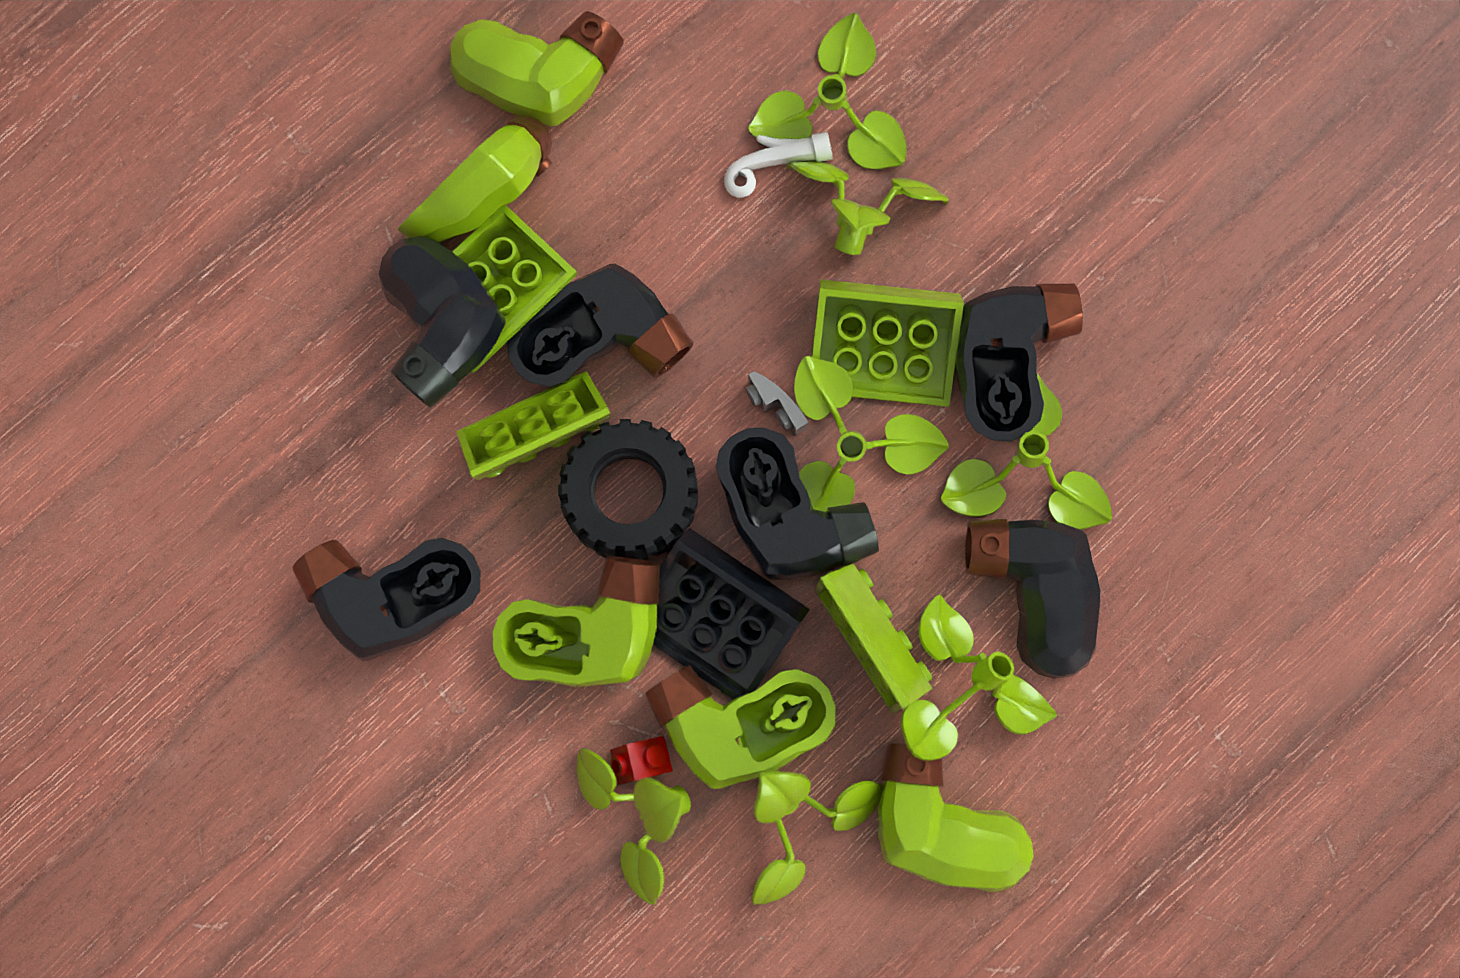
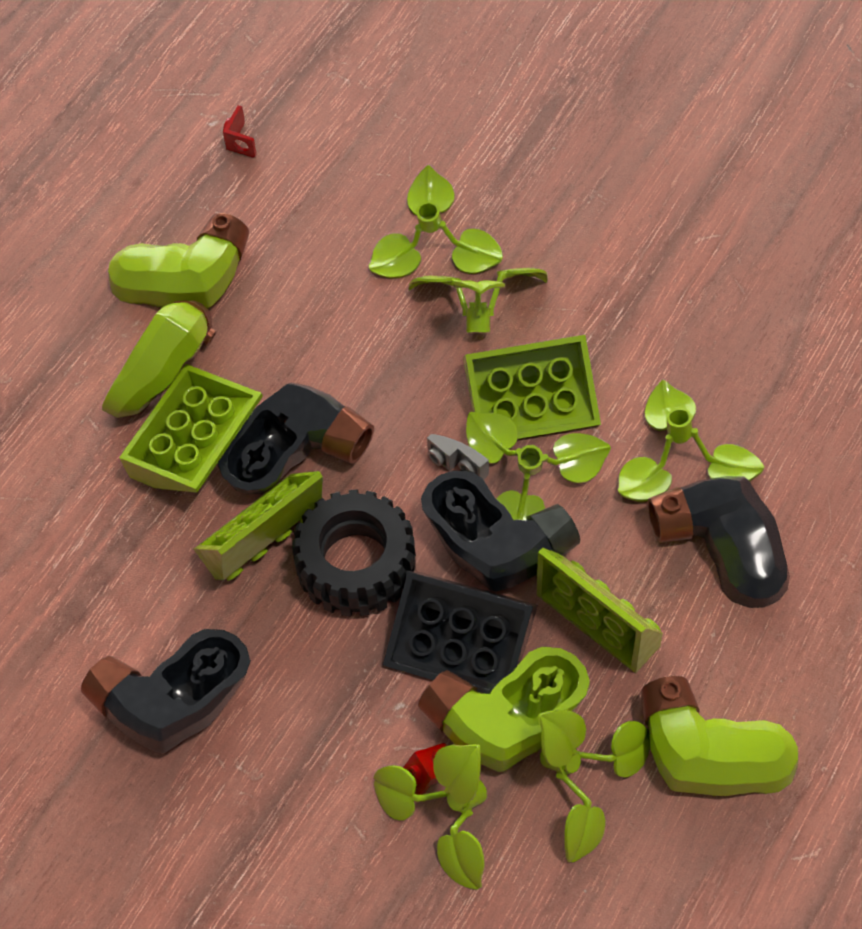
camera: 10 degrees left, 20 degrees down
(448, 307) = (163, 445): black piece -> none
(584, 642) = (351, 677): lime piece -> none
(780, 152) = (398, 278): white plant -> none
(999, 355) = (627, 368): black piece -> none
(1017, 706) = (705, 598): lime plant -> none

